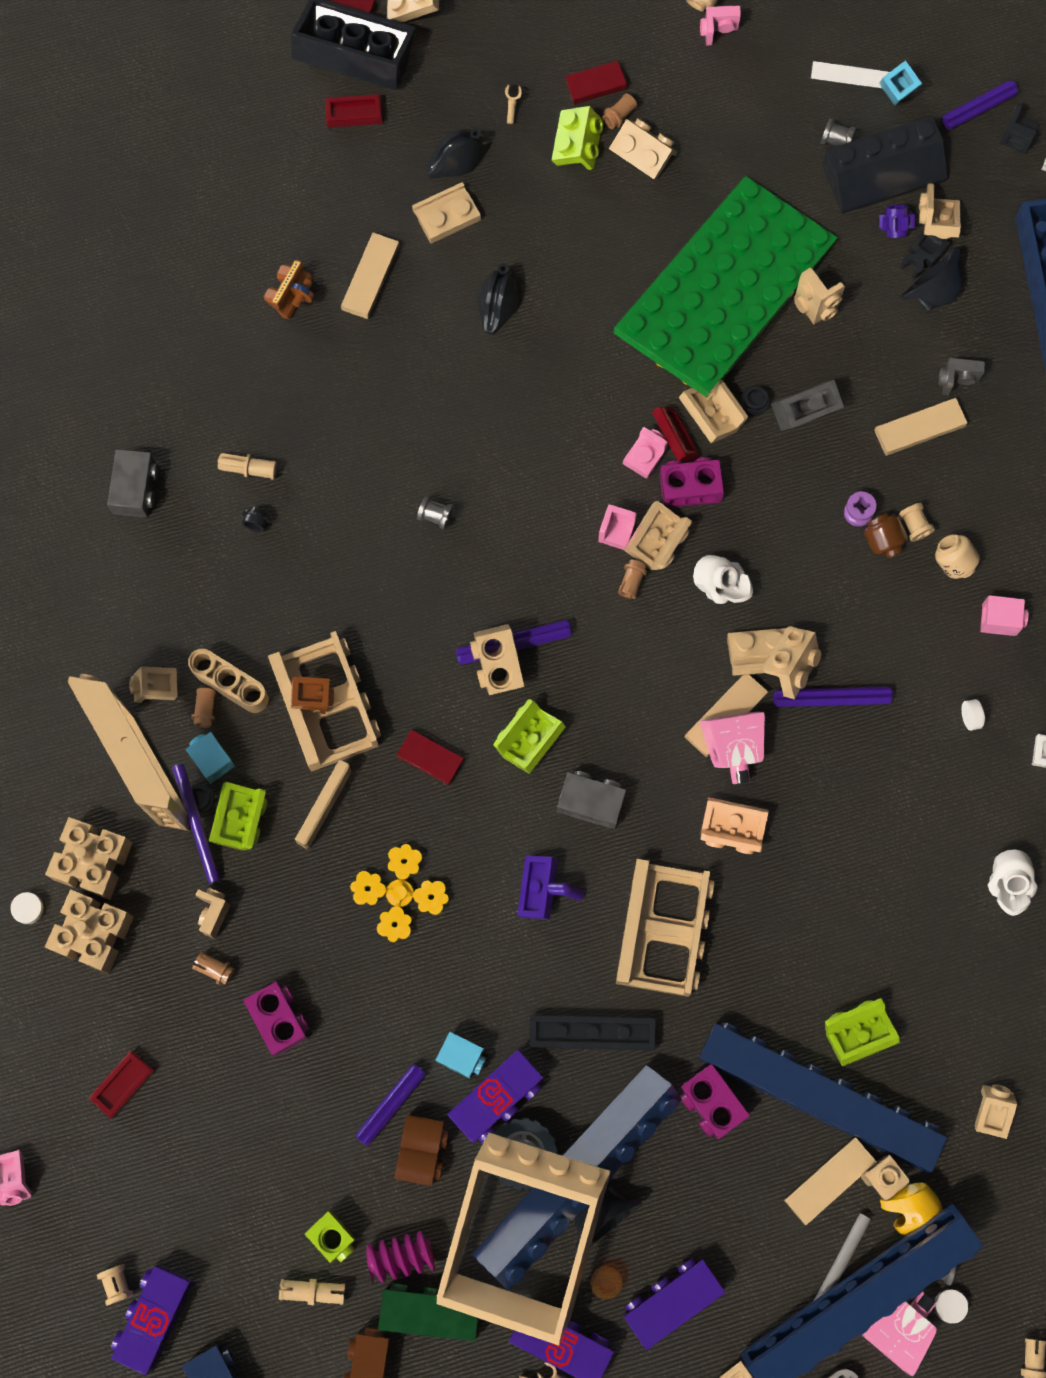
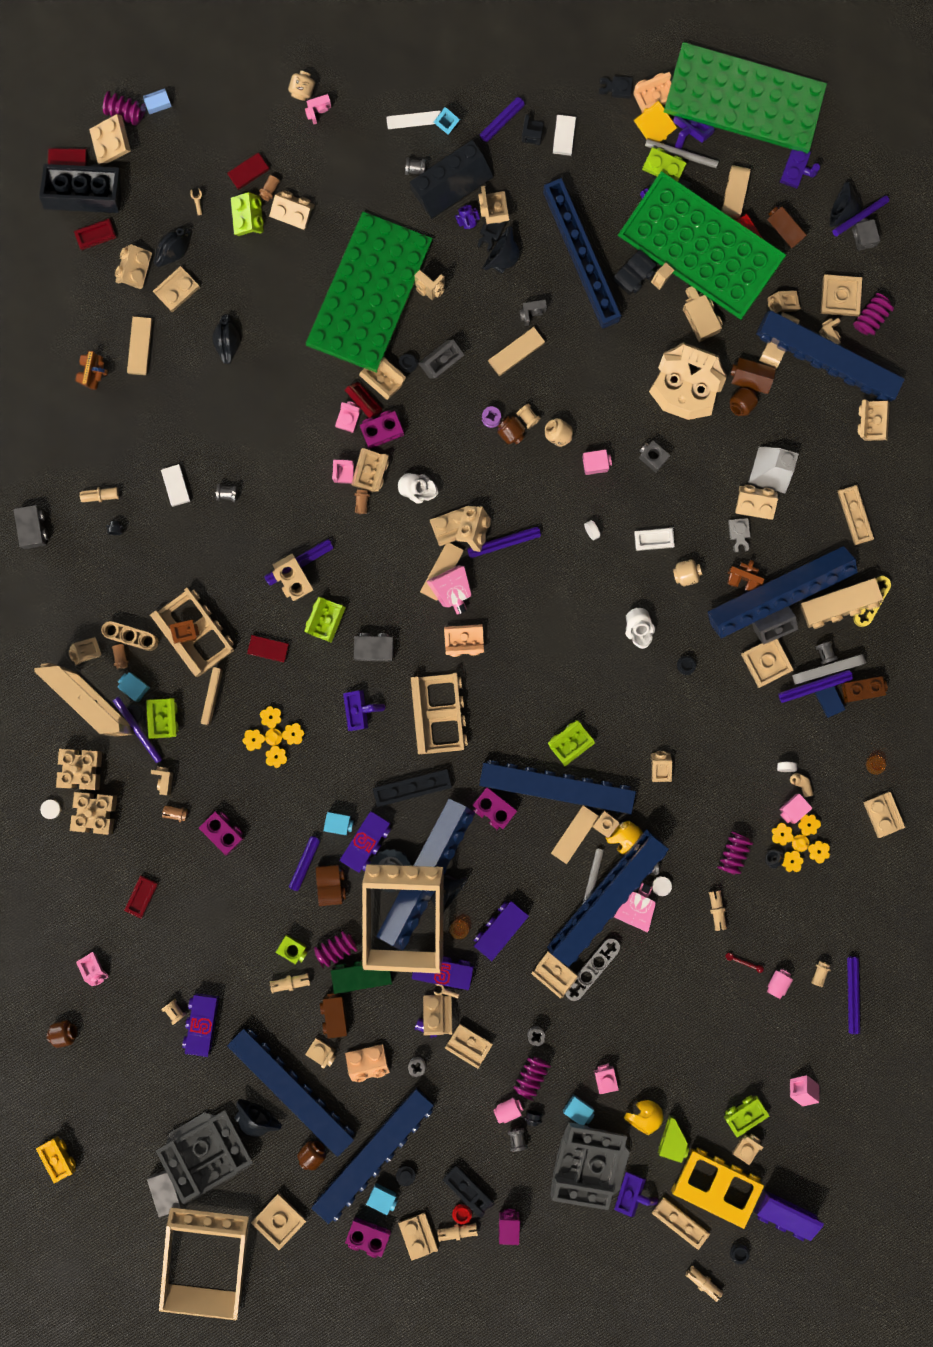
camera: 15 degrees left, 10 degrees up
(363, 482) = (175, 485): none -> white tile
(394, 165) = (133, 266): none -> tan bracket

